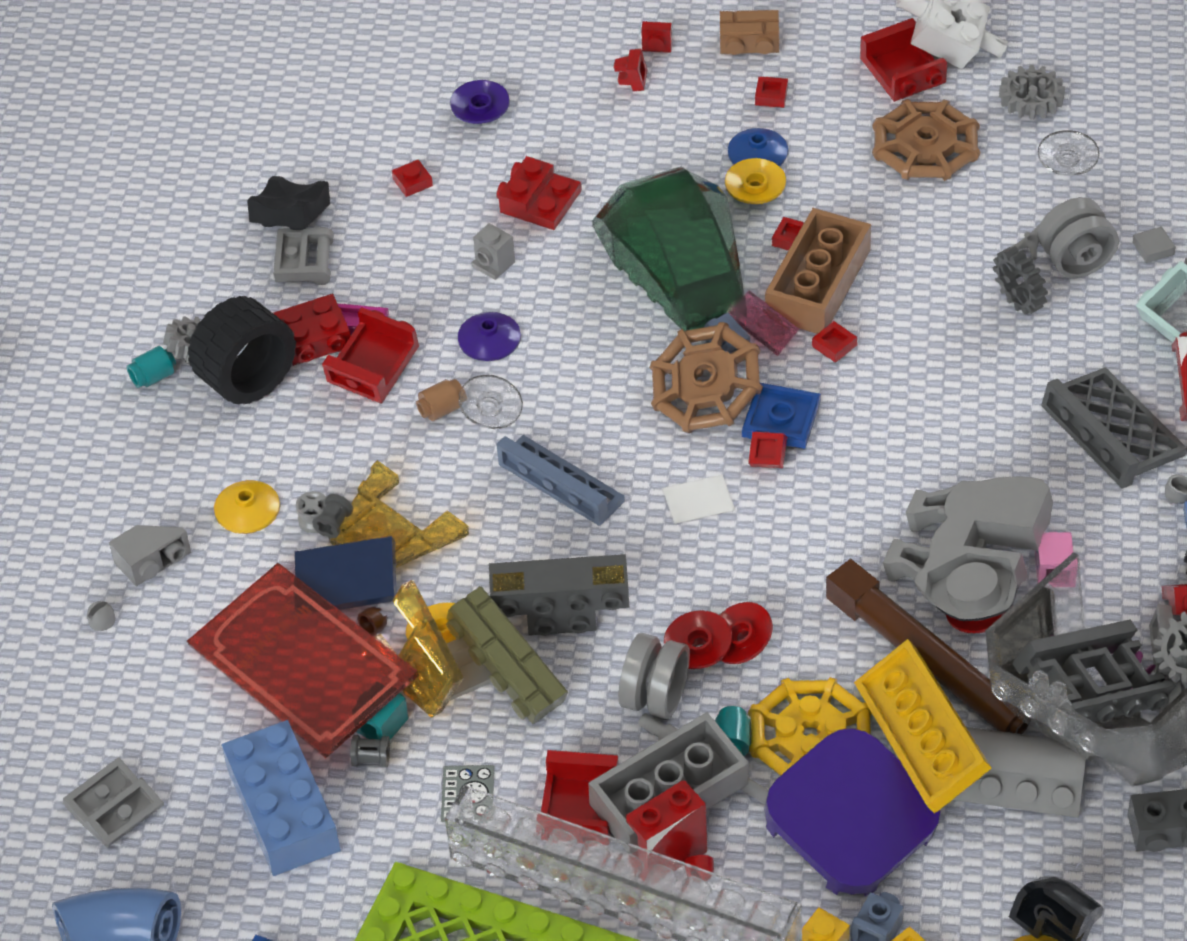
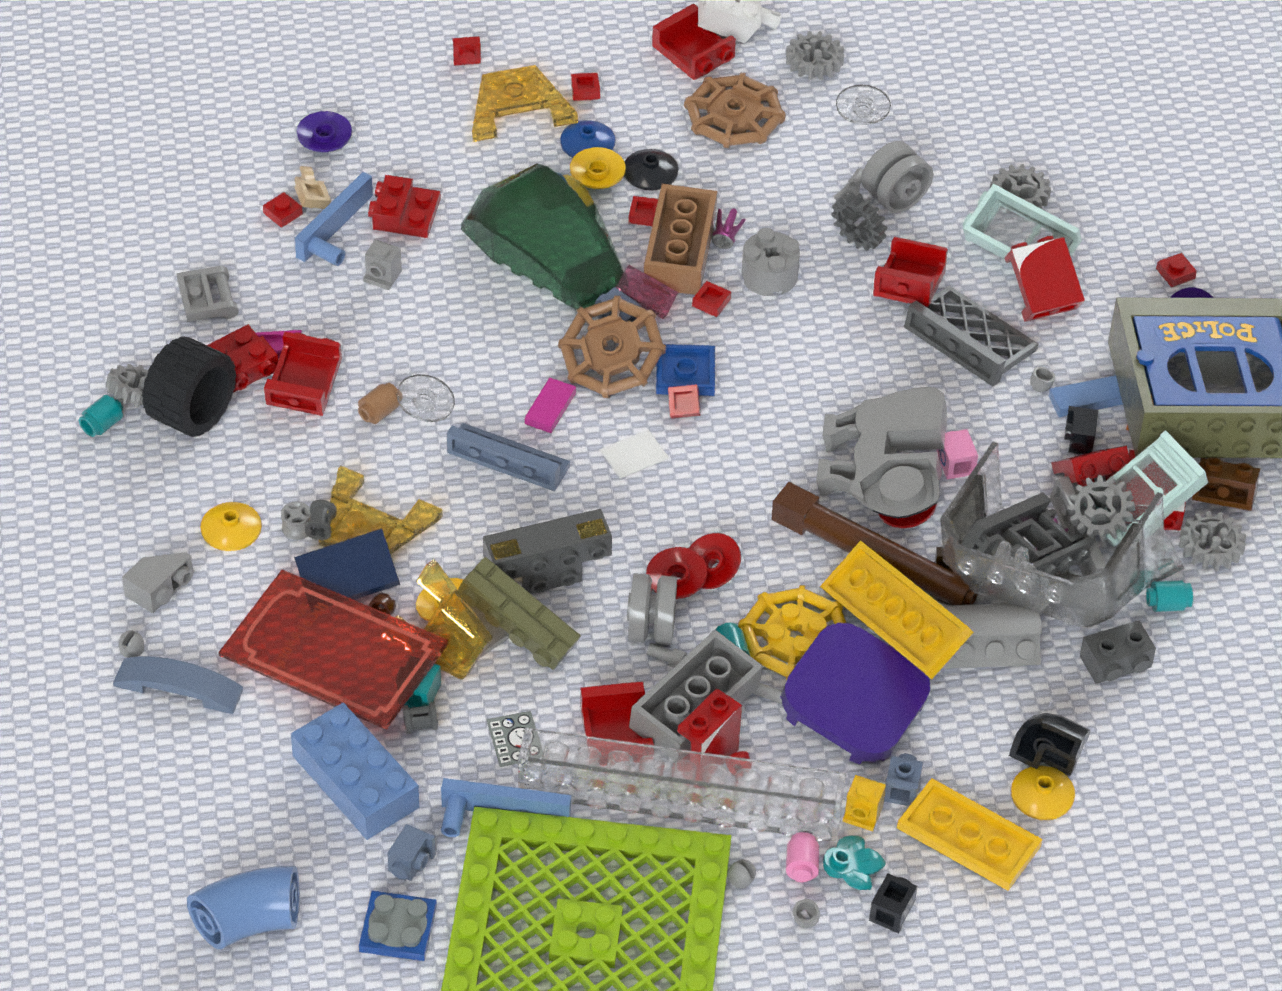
camera: 20 degrees left, 0 degrees up
(112, 802) = (201, 803): light grey slope -> none
(137, 663) = (179, 678): none -> sand blue slope
(288, 203) = (180, 249): black brick -> none
(309, 900) = (410, 852): none -> sand blue brick
(388, 847) = (464, 795): none -> medium blue piece
(444, 163) = (309, 191): none -> tan plate
(448, 200) = (314, 236): none -> medium blue piece
(489, 336) = (400, 341): dark purple dish -> none
(623, 431) = (550, 405): none -> dark pink tile
(634, 70) = (453, 84): red tile -> none
(694, 89) = (514, 93): none -> clear yellow wing
(749, 32) = (548, 35): medium nougat brick -> none
(815, 189) = (650, 169): none -> black dish
(870, 275) = (725, 234): none -> flat silver piece
(910, 311) = (770, 262): none -> light grey brick
(1064, 346) = (911, 272): none -> red panel
(1153, 244) = (958, 174): light grey tile -> none

